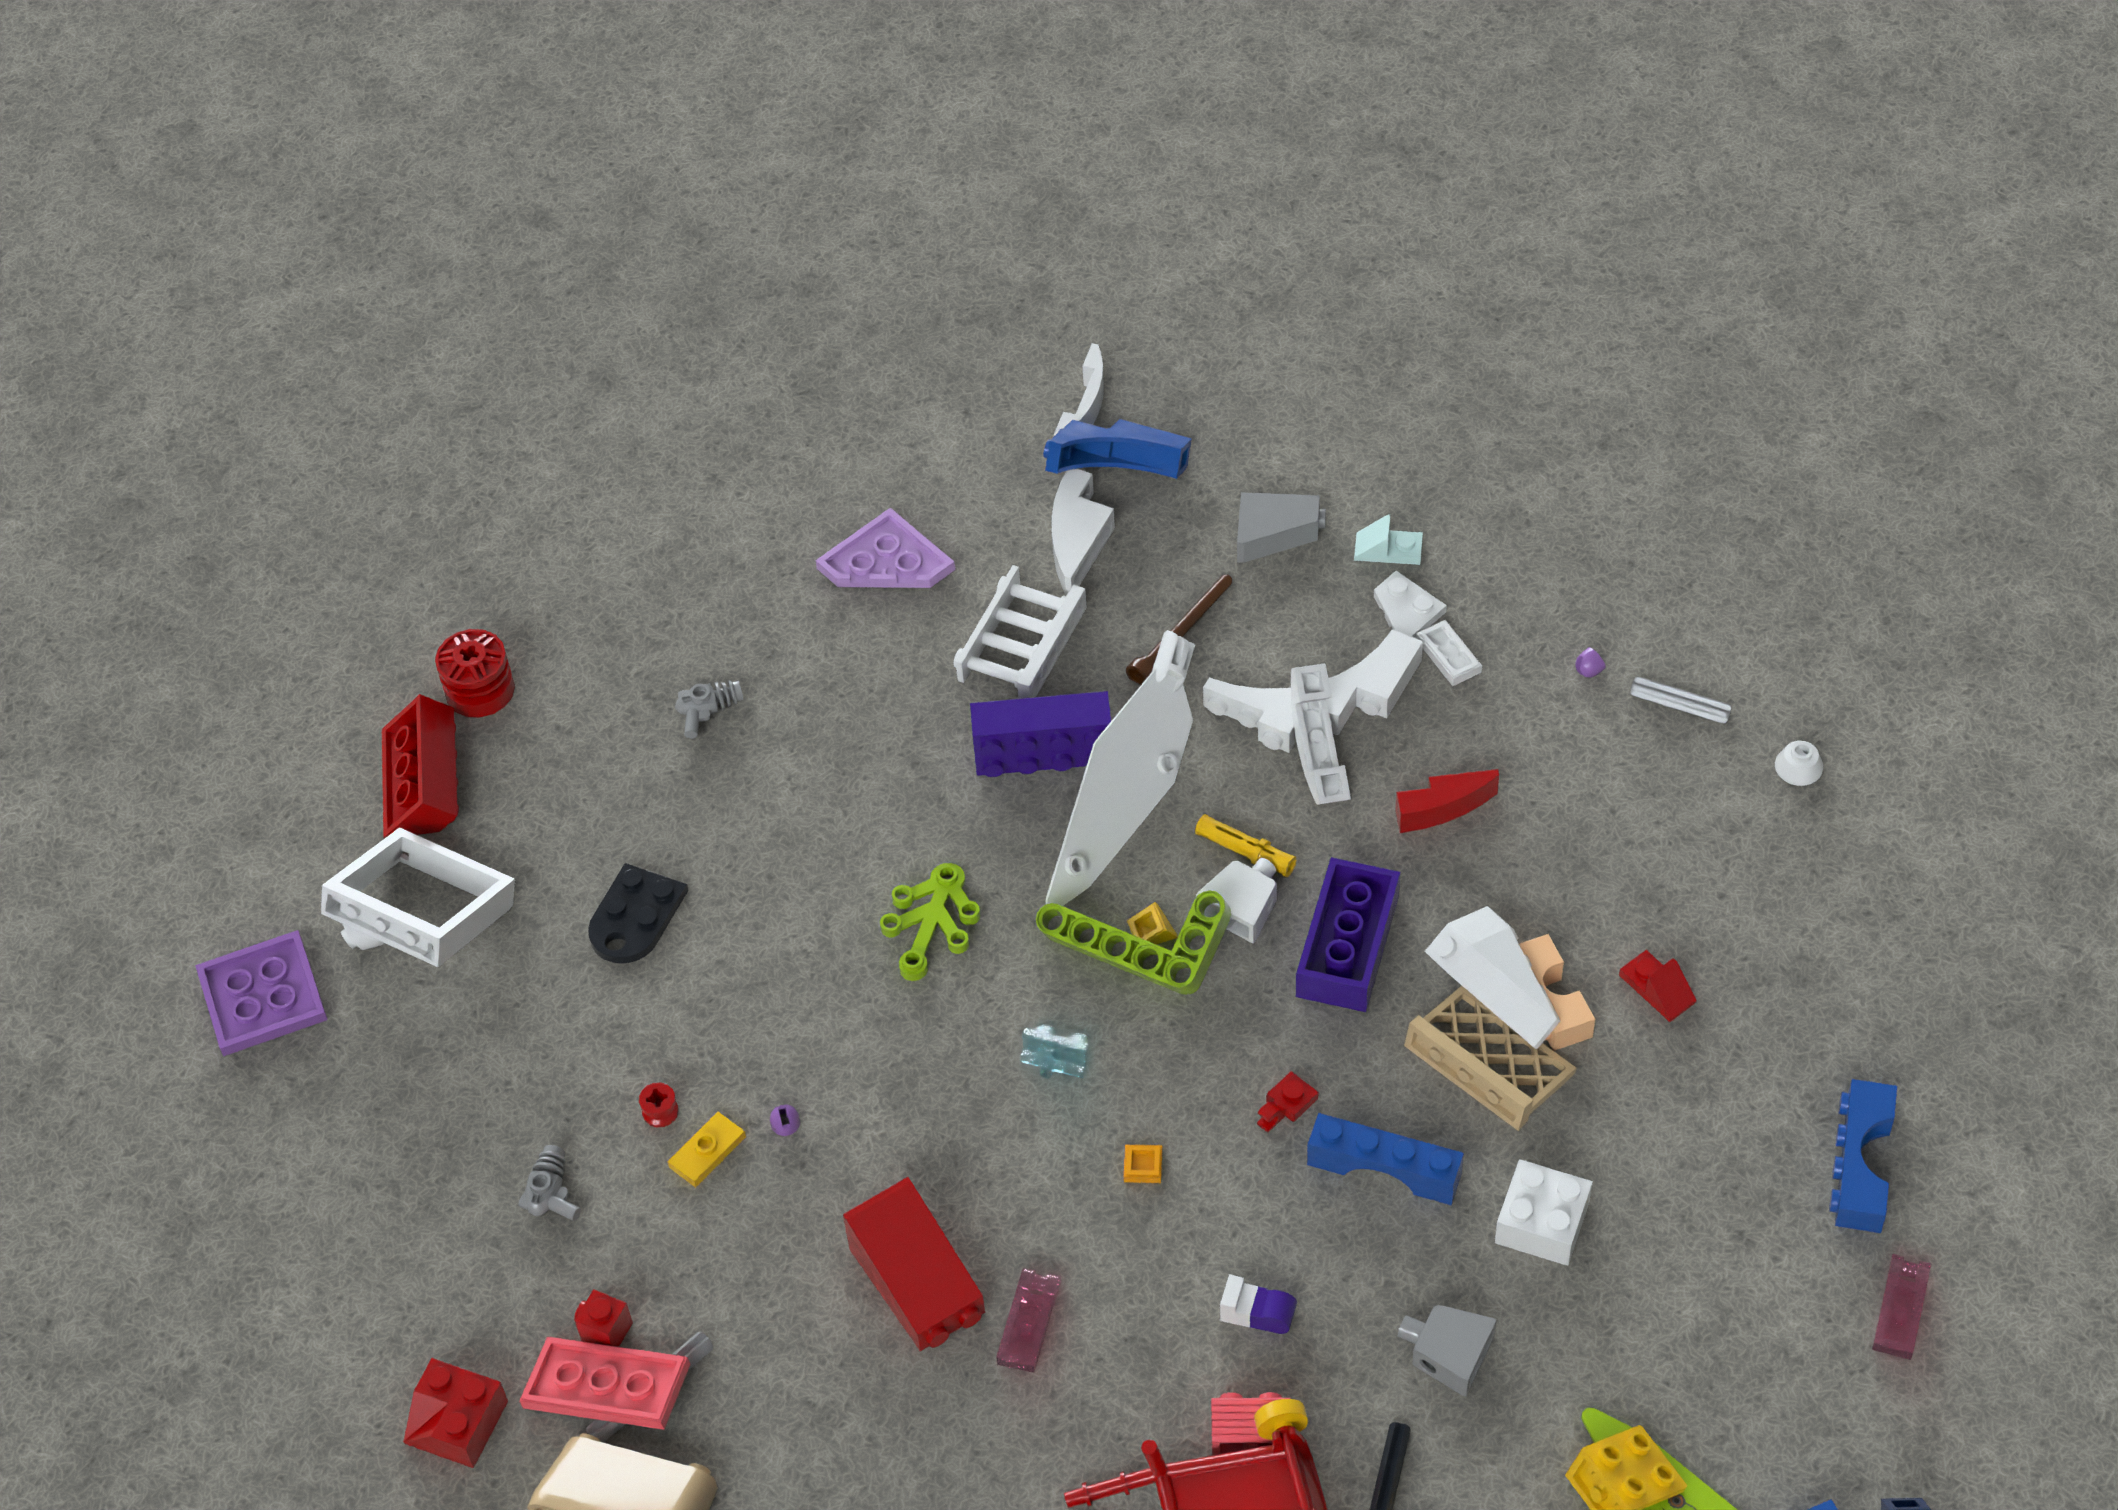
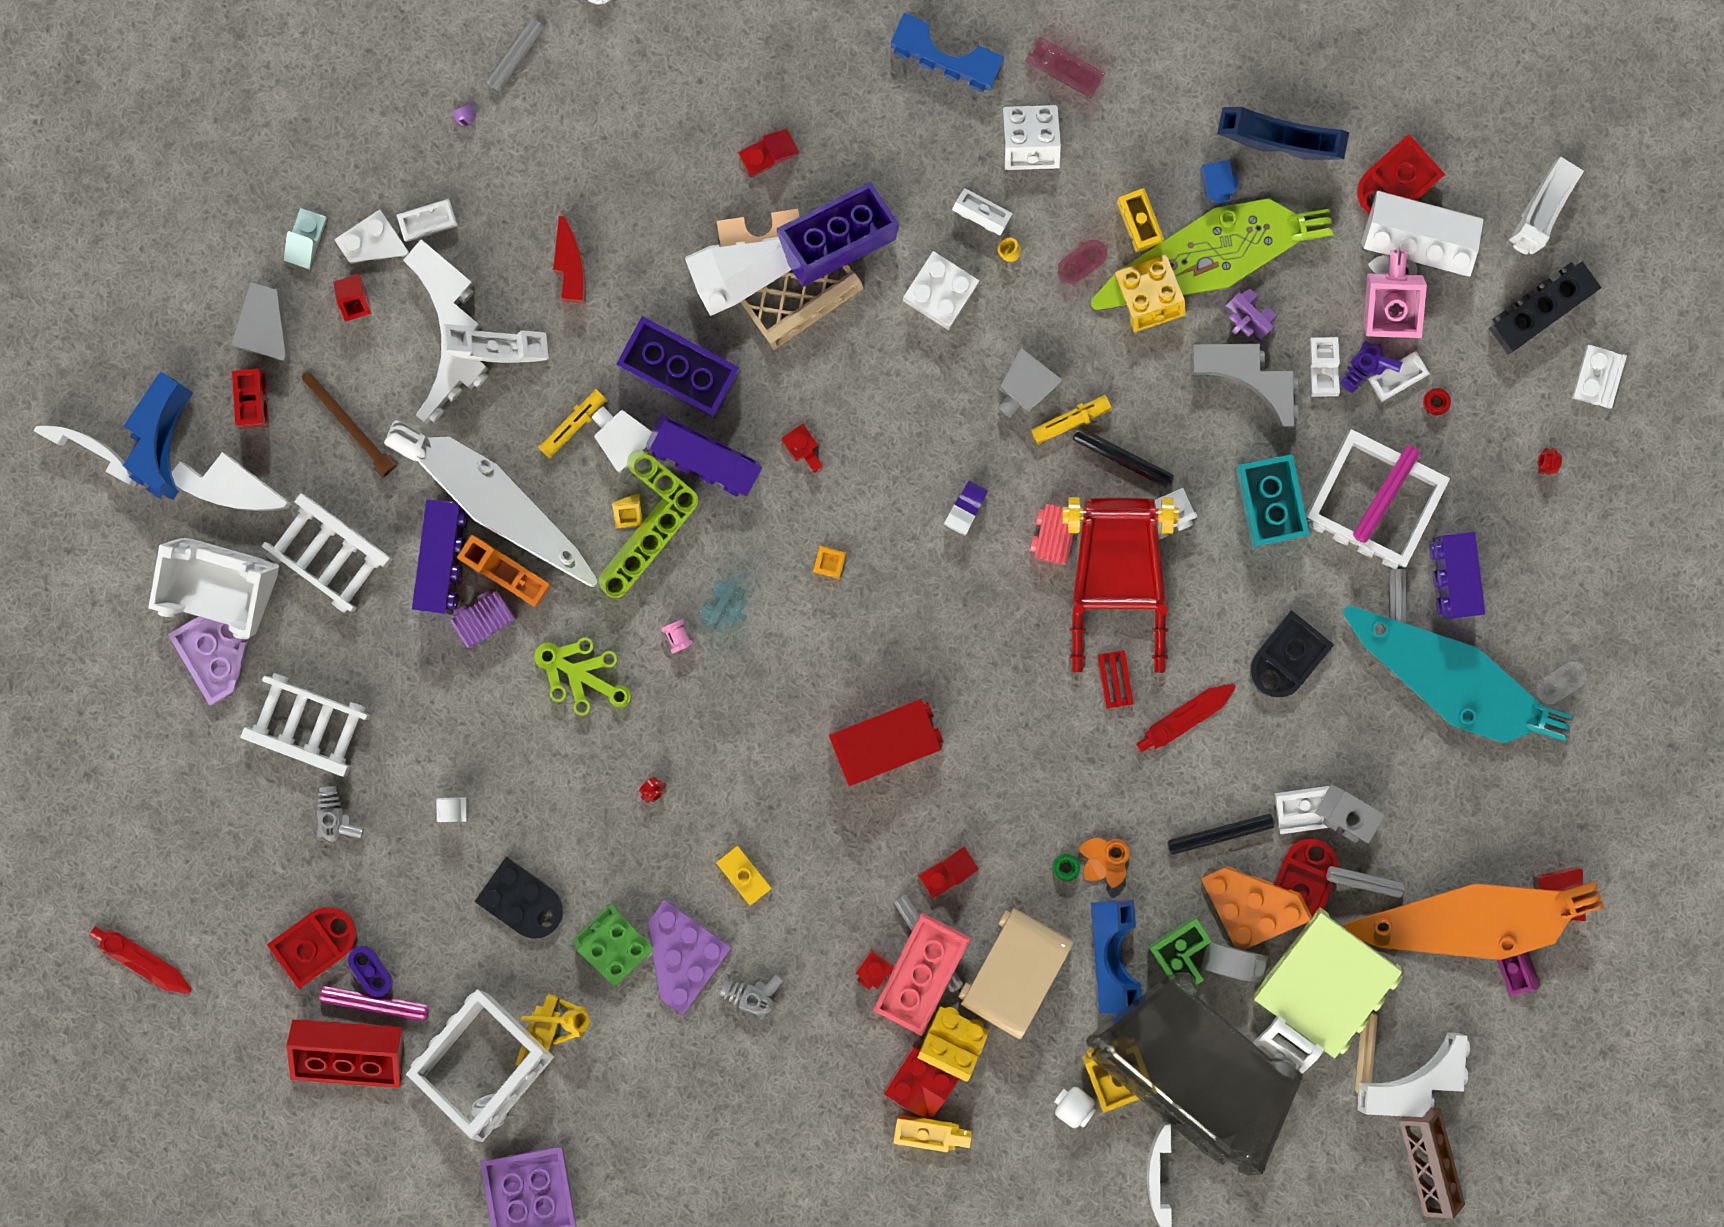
camera: 80 degrees left, 35 degrees up
(384, 1442) = (930, 1134): none -> yellow hinge
(473, 965) = (542, 1032): none -> yellow hinge
(475, 673) = (279, 994): red wheel -> none
(484, 790) = (373, 1004): none -> dark pink axle
(486, 978) = (573, 1021): none -> yellow plant
(505, 563) = (140, 960): none -> red piece
(513, 1436) = (953, 1043): none -> yellow plate
(520, 776) = (367, 973): none -> dark purple plate
(545, 713) = (313, 945): none -> red plate
(589, 1015) = (612, 944): none -> bright green bracket
(589, 1103) = (682, 955): none -> medium lavender plate
(666, 1106) = (704, 901): red wheel -> none
(734, 814) = (451, 809): none -> white leg
(752, 1392) = (948, 872): none -> red slope
(784, 638) = (285, 743): none -> white fence
(792, 1115) = (732, 808): medium lavender hinge -> none
(800, 1020) = (652, 790): none -> red plate
(957, 527) = (212, 584): none -> white windscreen
(978, 800) = (483, 618): none -> medium lavender brick
(1004, 1008) = (677, 636): none -> bright pink bush
(1028, 1320) = (938, 669): clear pink plate -> none
(1046, 797) = (504, 571): none -> orange arch
(1184, 524) = (250, 398): none -> red brick
(1241, 977) = (703, 455): none -> dark purple brick
(1331, 594) = (352, 297): none -> red brick
(1422, 1166) = (872, 390): blue arch -> none
(1428, 1426) = (1071, 419): none -> yellow pin
(1576, 1066) = (837, 233): none -> dark purple slope
(1626, 1288) = (1007, 250): none -> yellow hinge
(1643, 1382) = (1081, 262): none -> clear pink plate
(1667, 1242) = (982, 211): none -> white plate
(1724, 1437) = (1140, 220): none -> yellow brick
(1788, 1279) = (1031, 137): none -> white bracket

